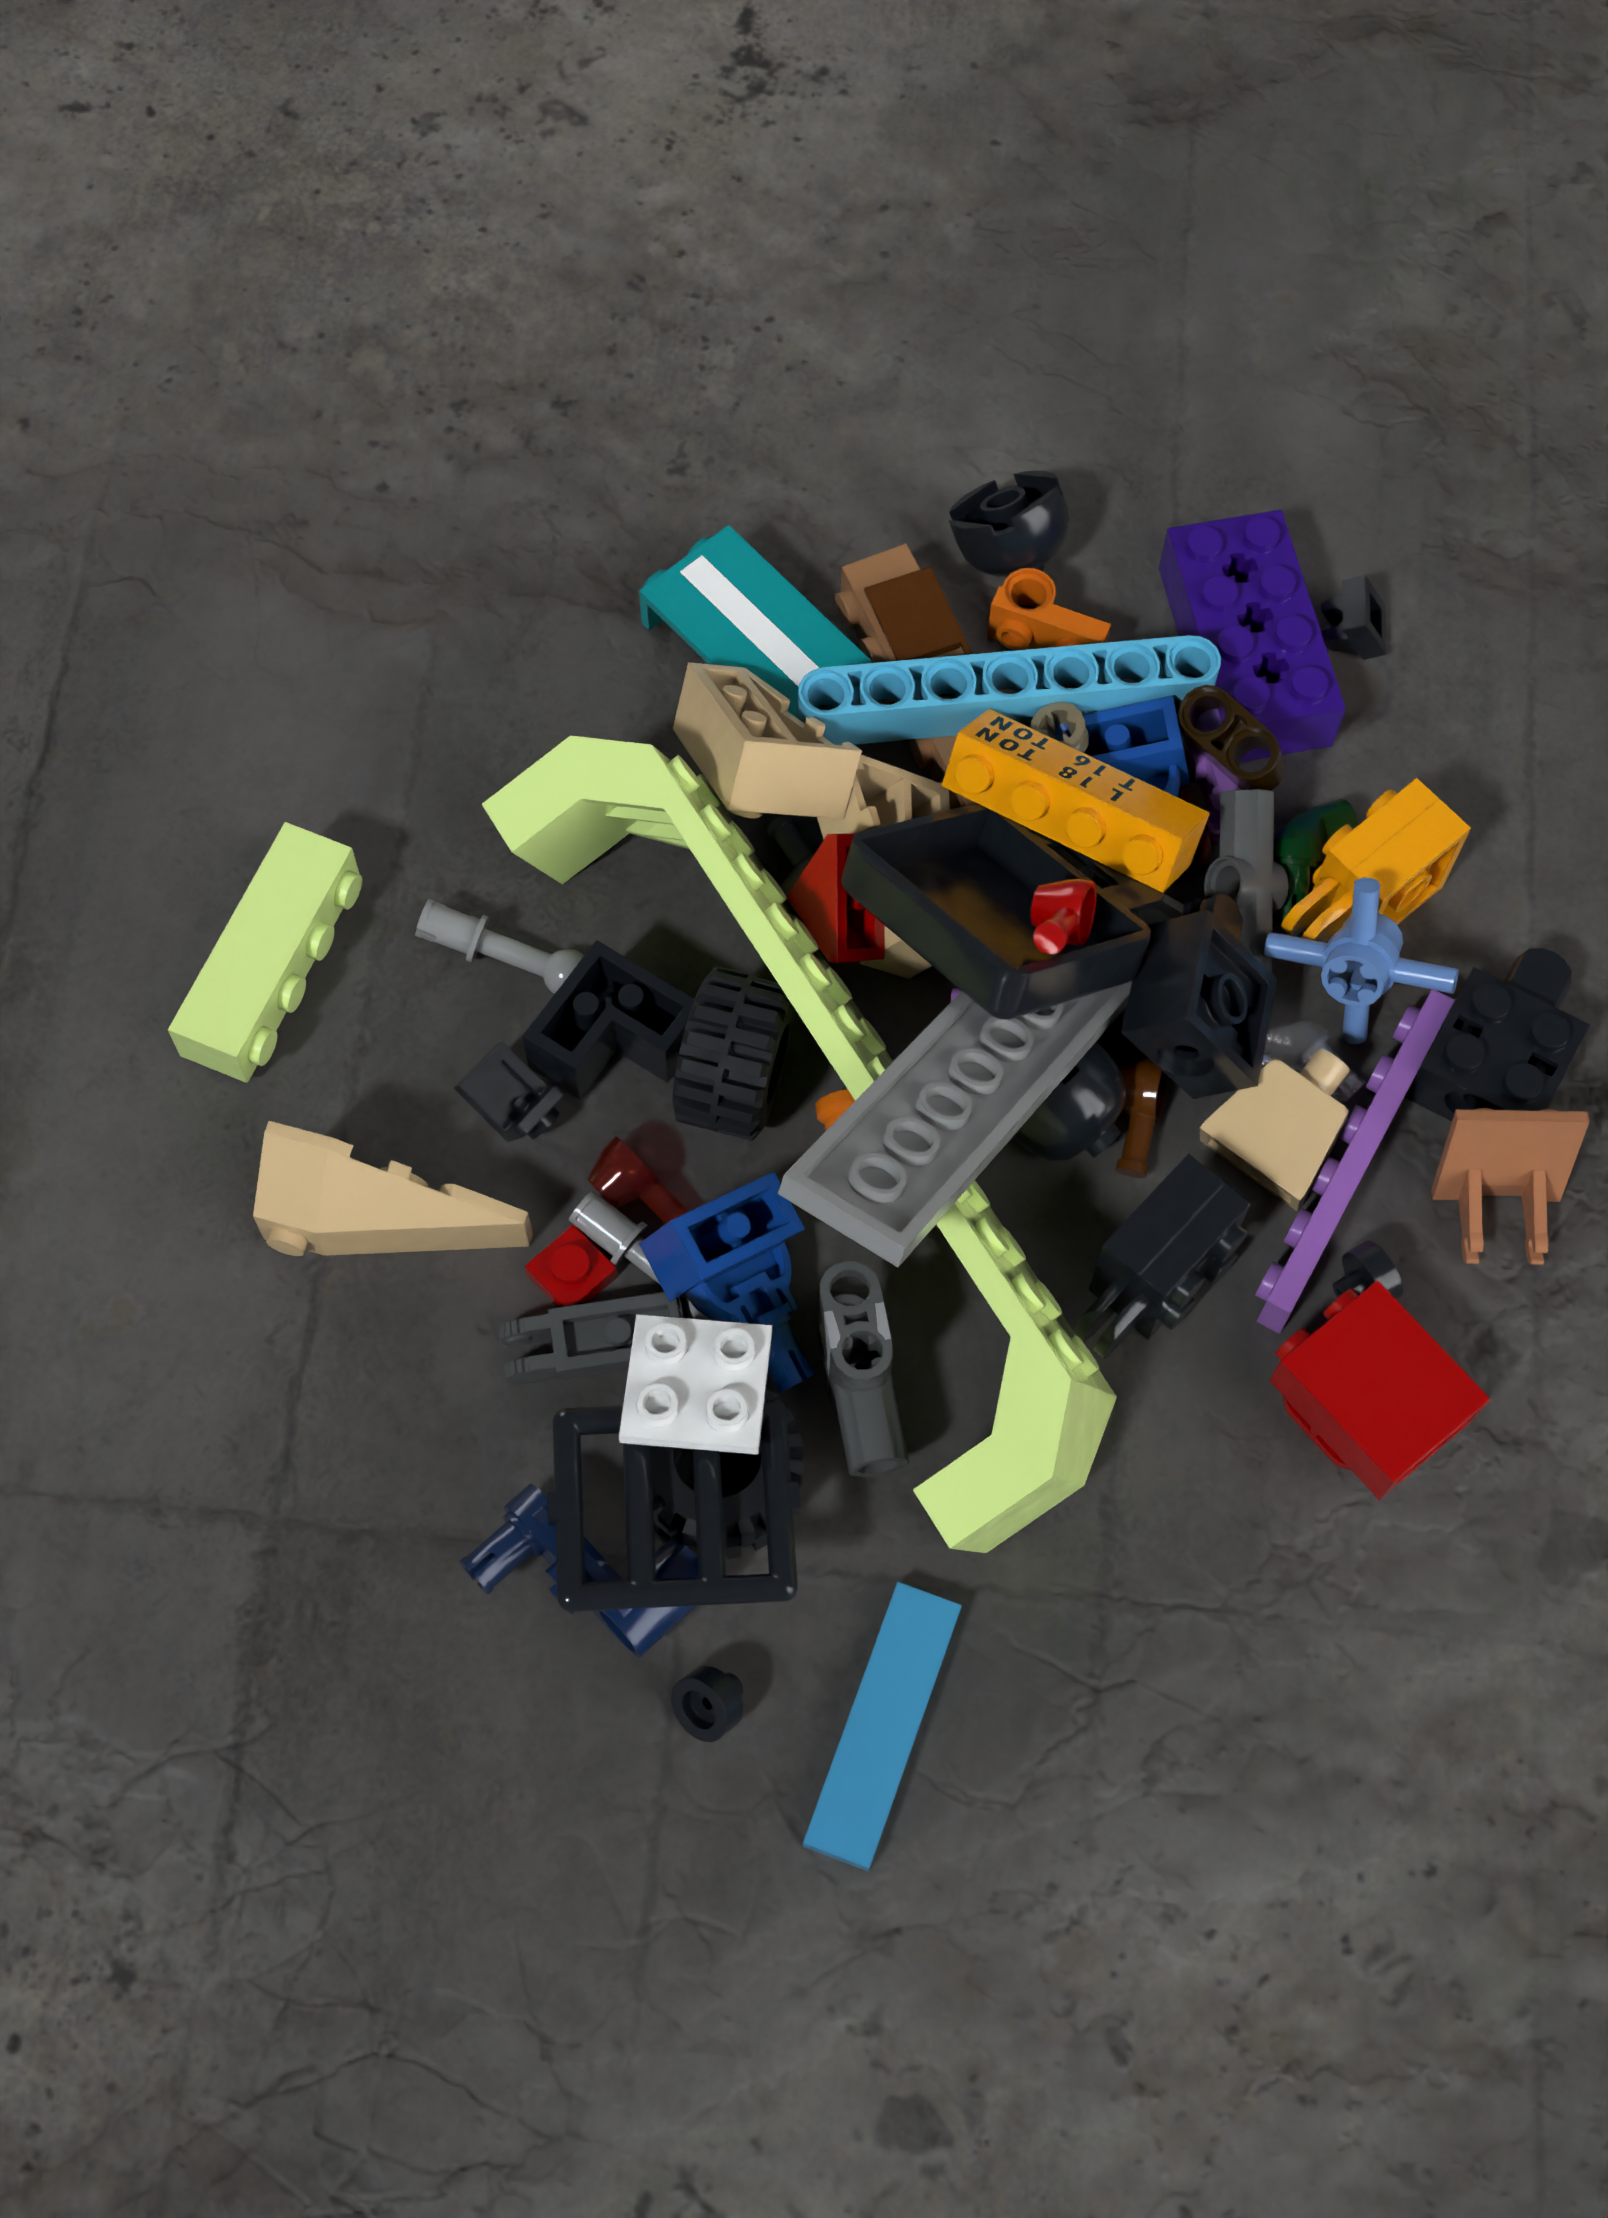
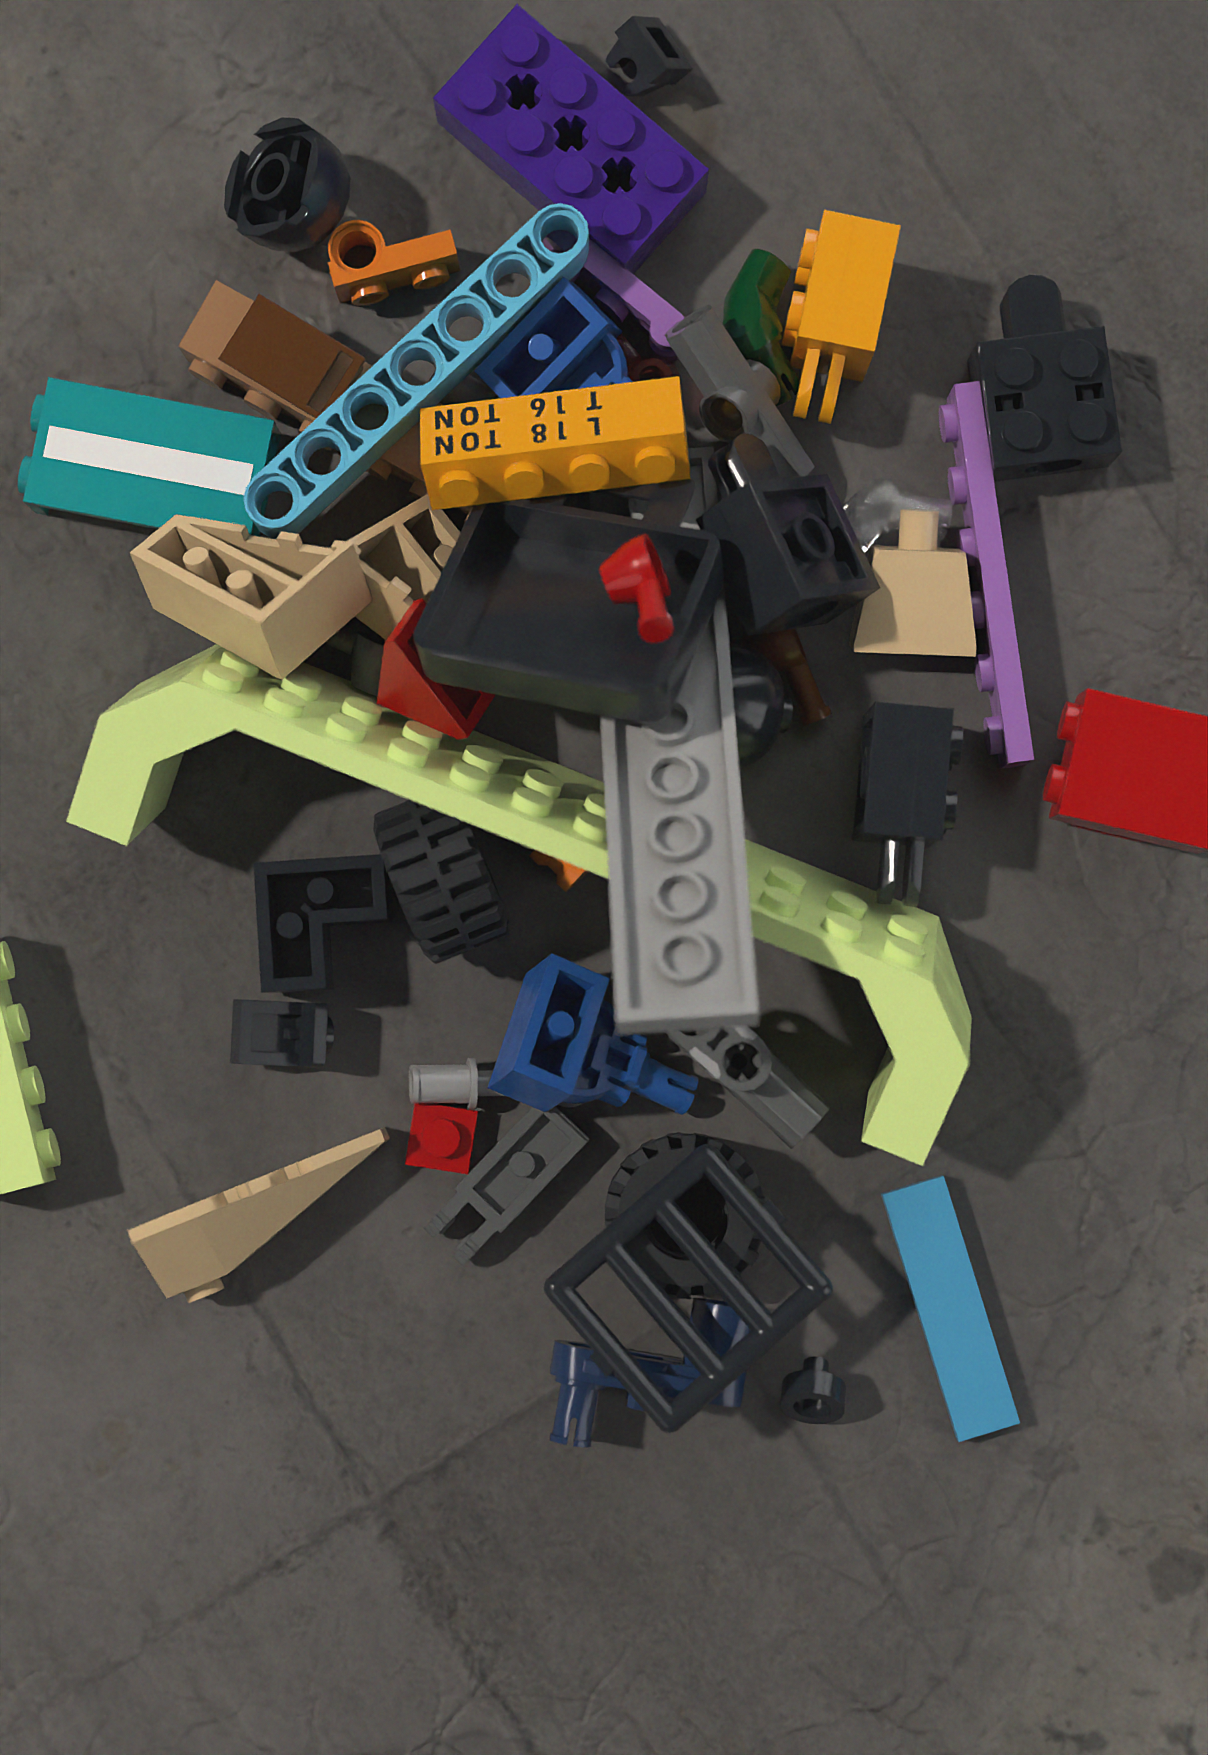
camera: 35 degrees left, 20 degrees up
(471, 936) = (229, 888): light grey pin -> none
(624, 1178) = (424, 1029): clear red bar -> none
(696, 1384) = (635, 1185): white plate -> none
(1060, 714) = (498, 363): dark tan bush -> none
(1233, 739) = (640, 293): dark brown beam -> none
(1362, 960) = (886, 409): medium blue bar -> none
(1364, 1267) = (1066, 673): black tile -> none
(1508, 1156) = (1092, 500): nougat plate -> none

